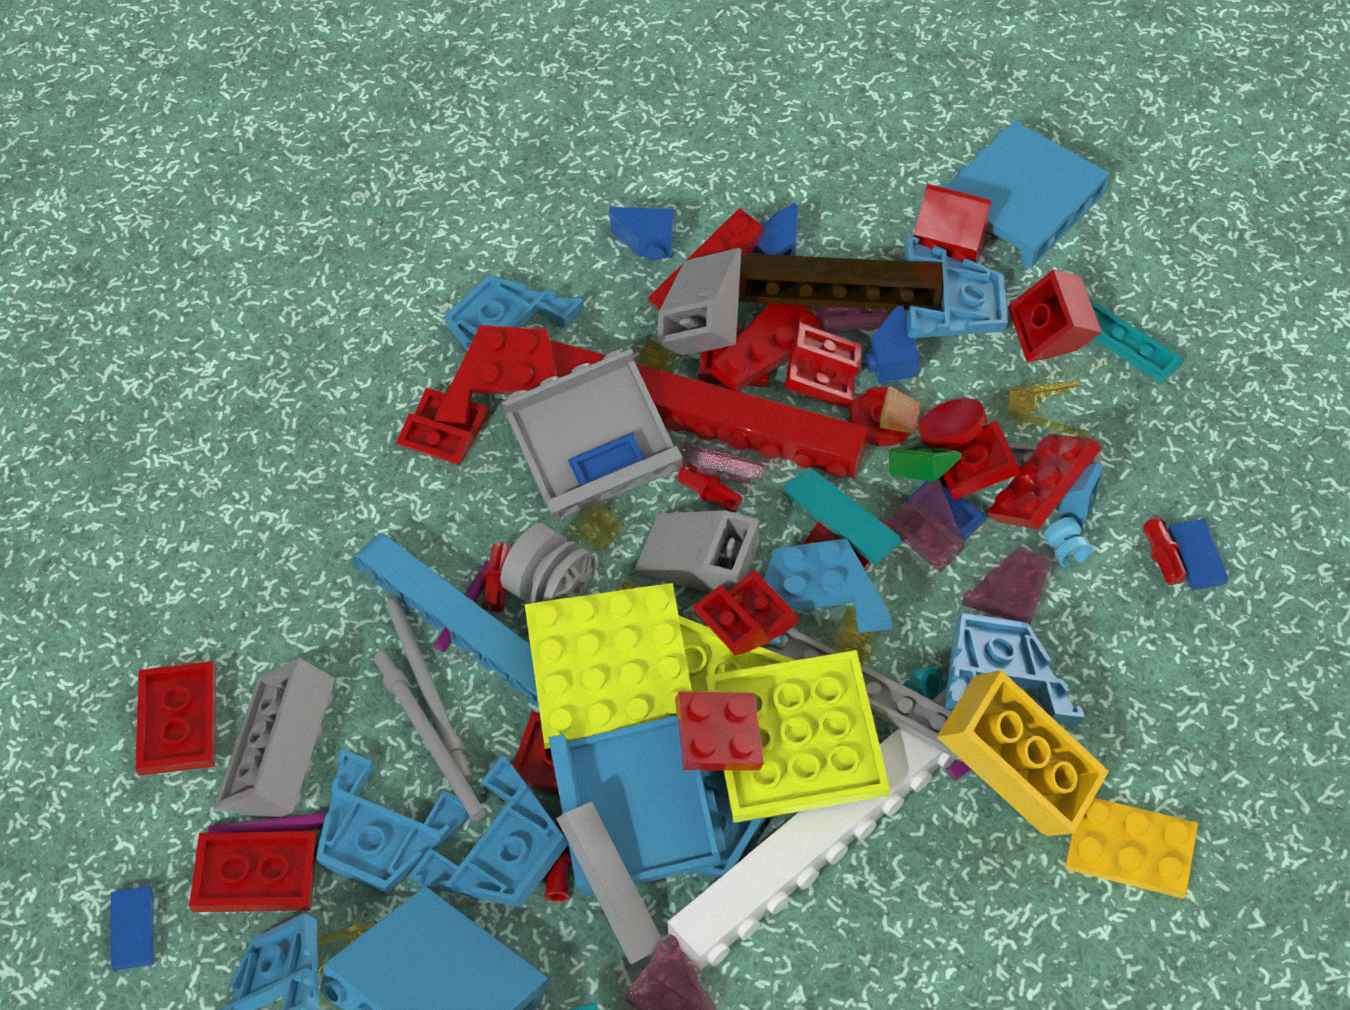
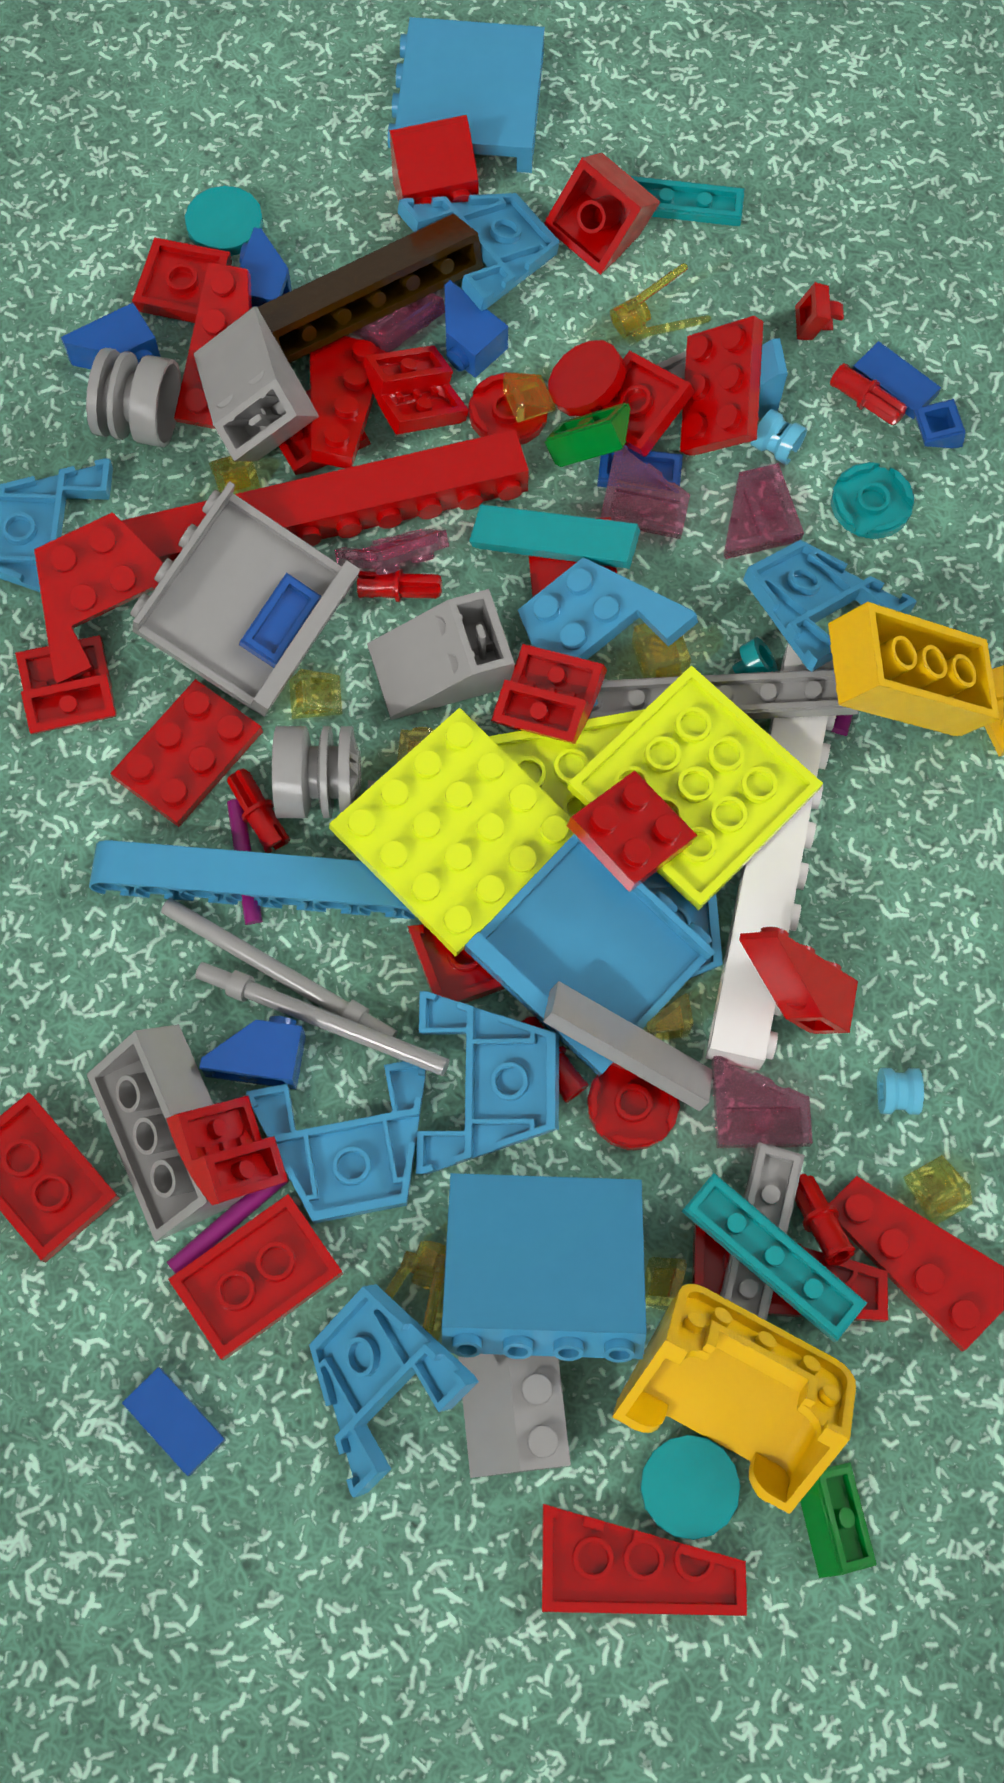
camera: 40 degrees left, 15 degrees up
(296, 772) = (226, 1150): none -> red slope
(371, 731) = (259, 1054): none -> blue slope
(482, 513) = (186, 752): none -> red plate
(588, 944) = (625, 1119): none -> red tile
(625, 268) = (133, 397): none -> light grey wheel
(660, 889) = (673, 1021): none -> clear yellow slope
(716, 205) = (175, 278): none -> red plate
(768, 926) = (804, 985): none -> red slope
(783, 186) = (223, 218): none -> teal tile
(1117, 636) = (864, 510): none -> teal tile
(1169, 473) = (816, 312): none -> red tile
(1204, 604) = (940, 425): none -> blue slope

